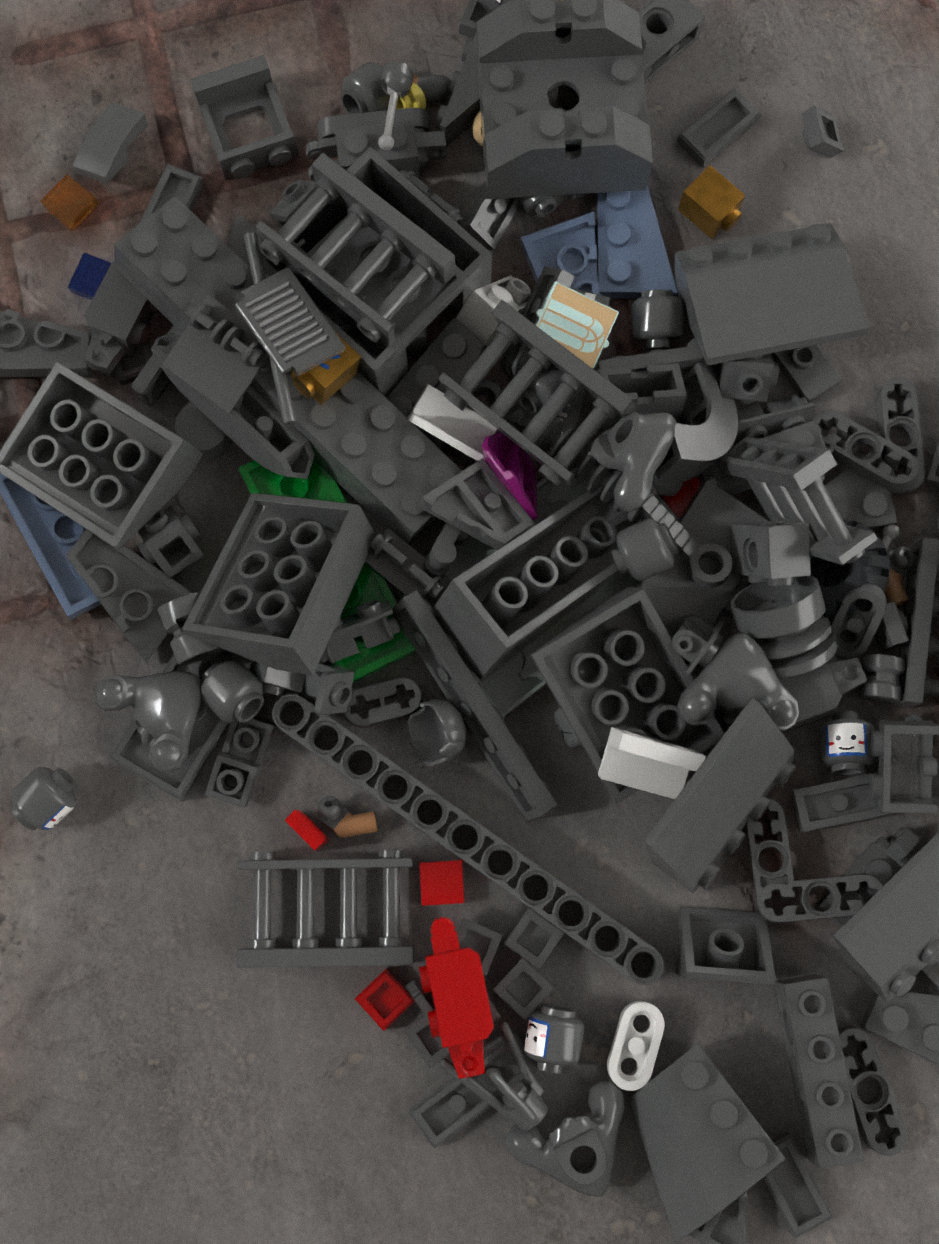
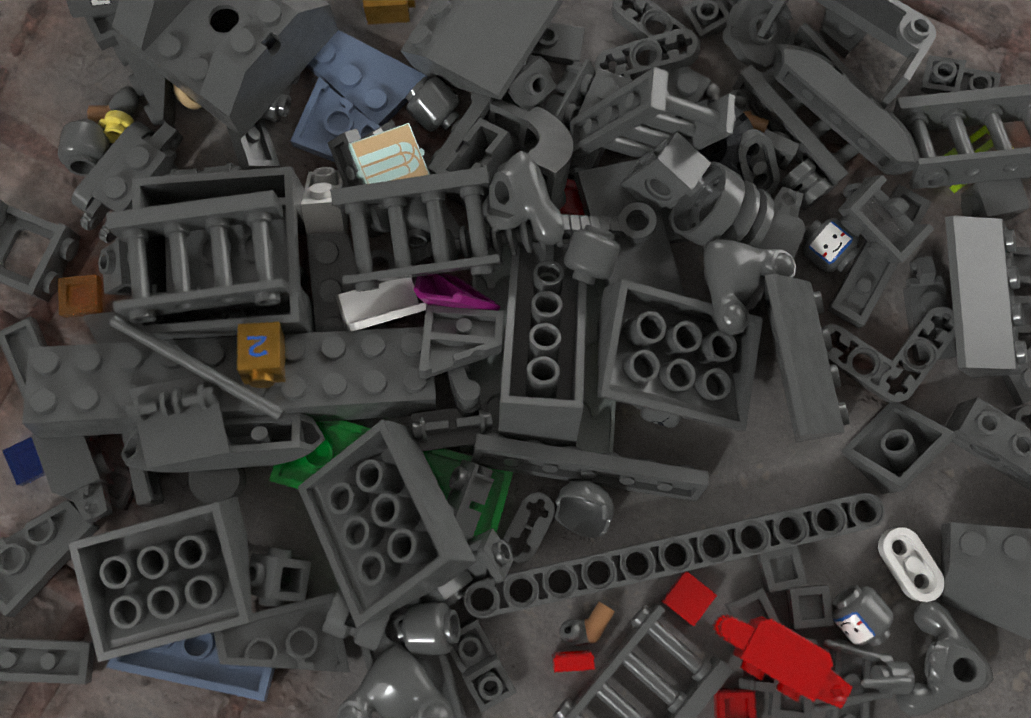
camera: 50 degrees left, 0 degrees up
(251, 197) = (80, 295): none -> clear orange plate
(288, 323) = (207, 350): dark grey window -> none
(396, 83) = (99, 122): hinge -> none
(647, 763) = (739, 384): white panel -> none
(697, 641) = (685, 276): dark grey hinge -> none

